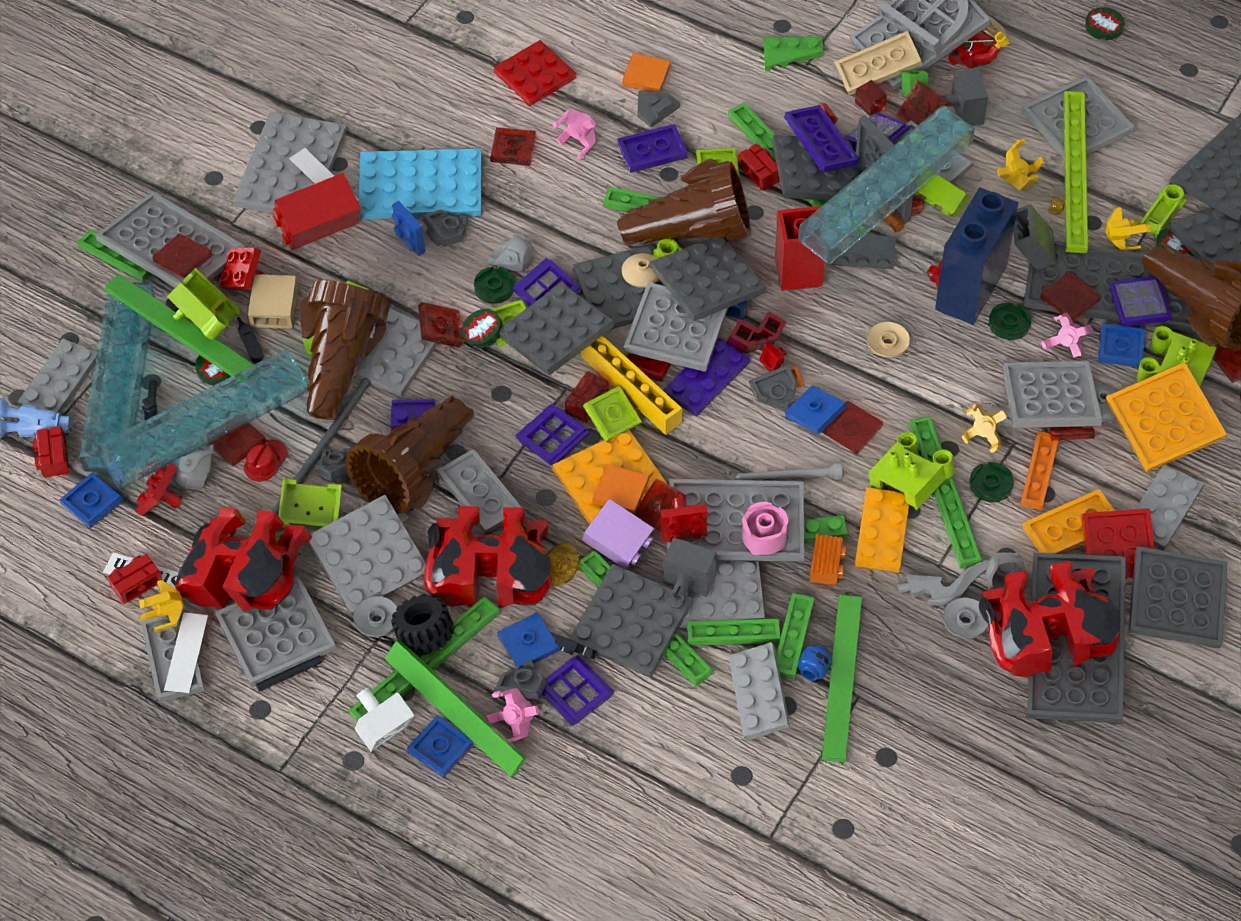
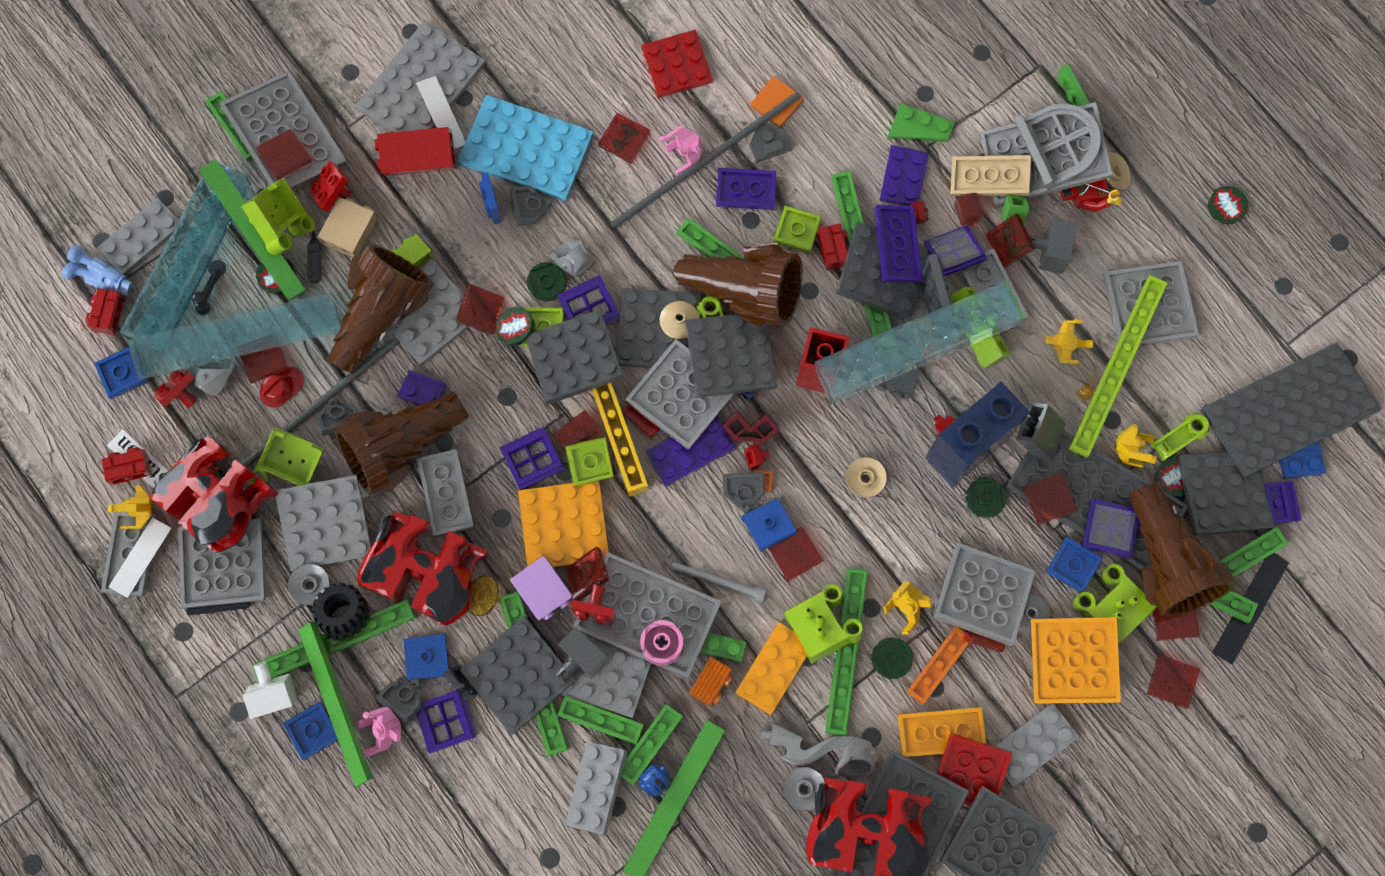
camera: 20 degrees right, 20 degrees up
(600, 139) = (705, 160): none -> dark grey piece
(621, 487) = (563, 542): orange tile -> none
(795, 89) = (903, 176): none -> dark purple plate
(1069, 335) = (1031, 539): bright pink piece -> none

